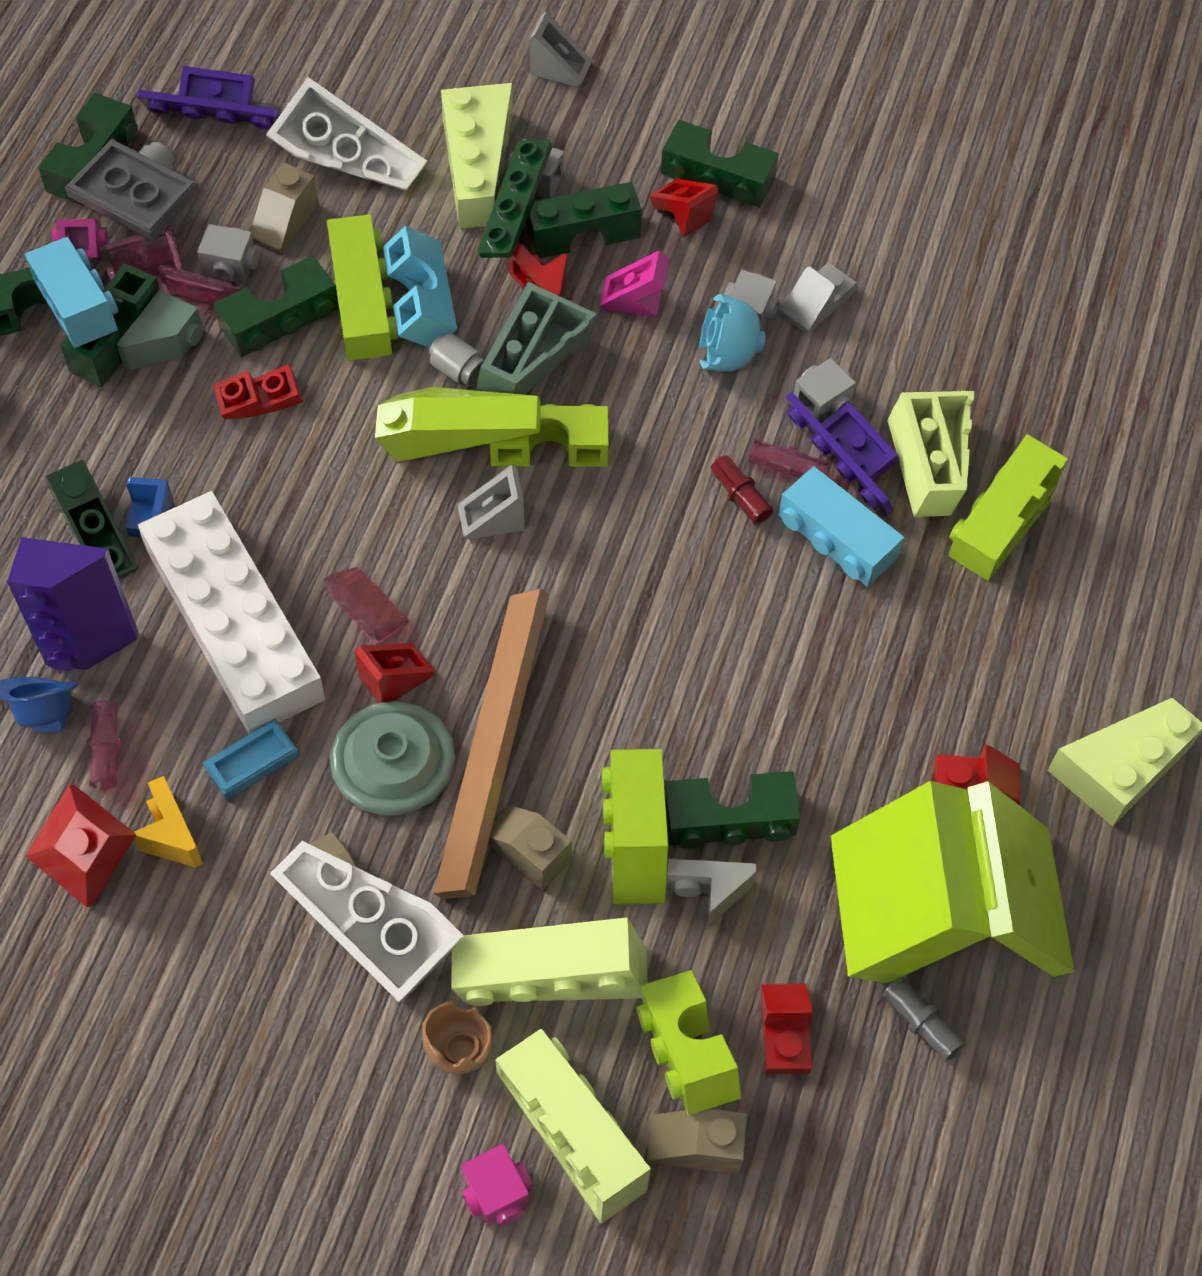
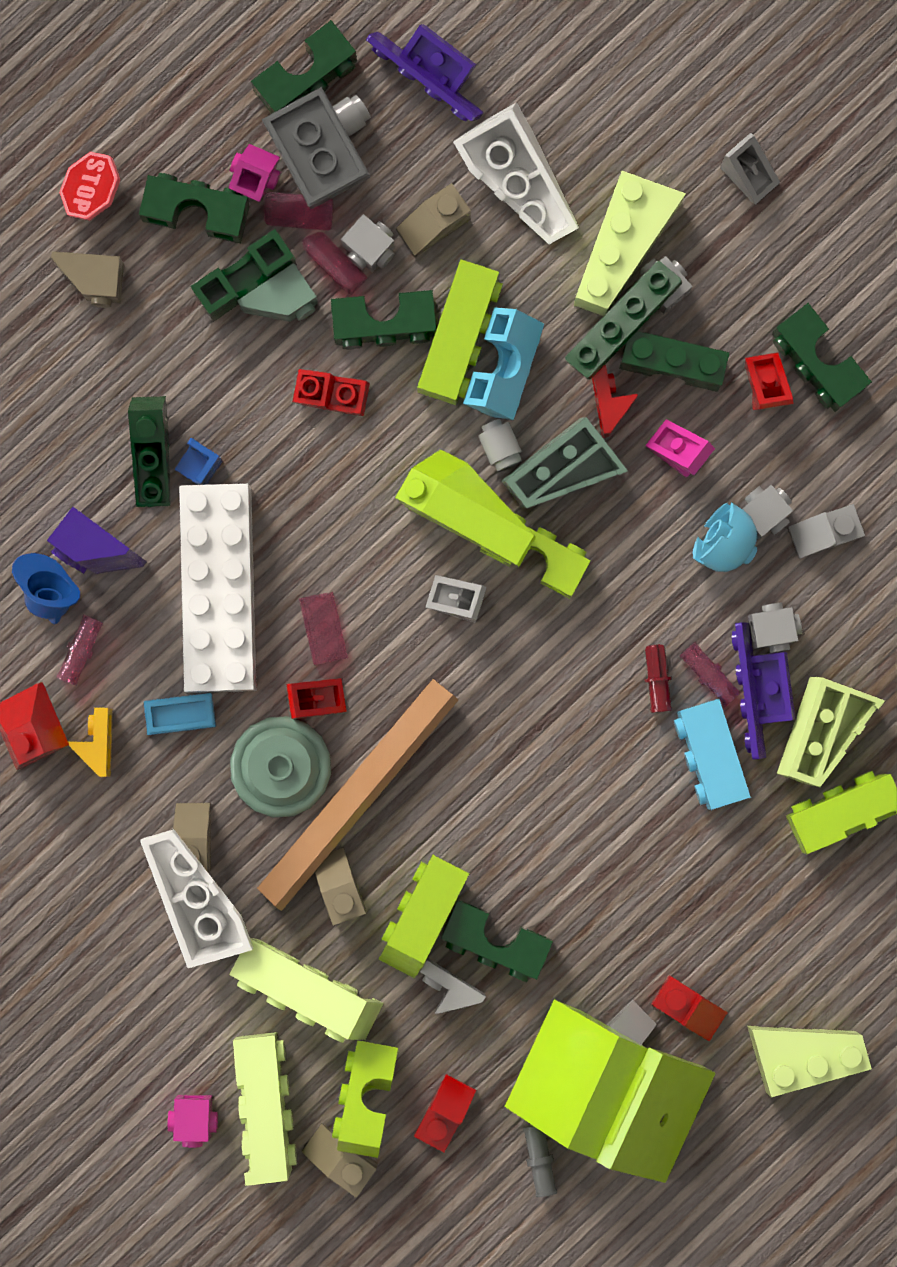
camera: 30 degrees right, 25 degrees up
(73, 291) = (219, 244): medium azure brick -> none
(456, 1038) = (217, 1007): medium nougat hair -> none

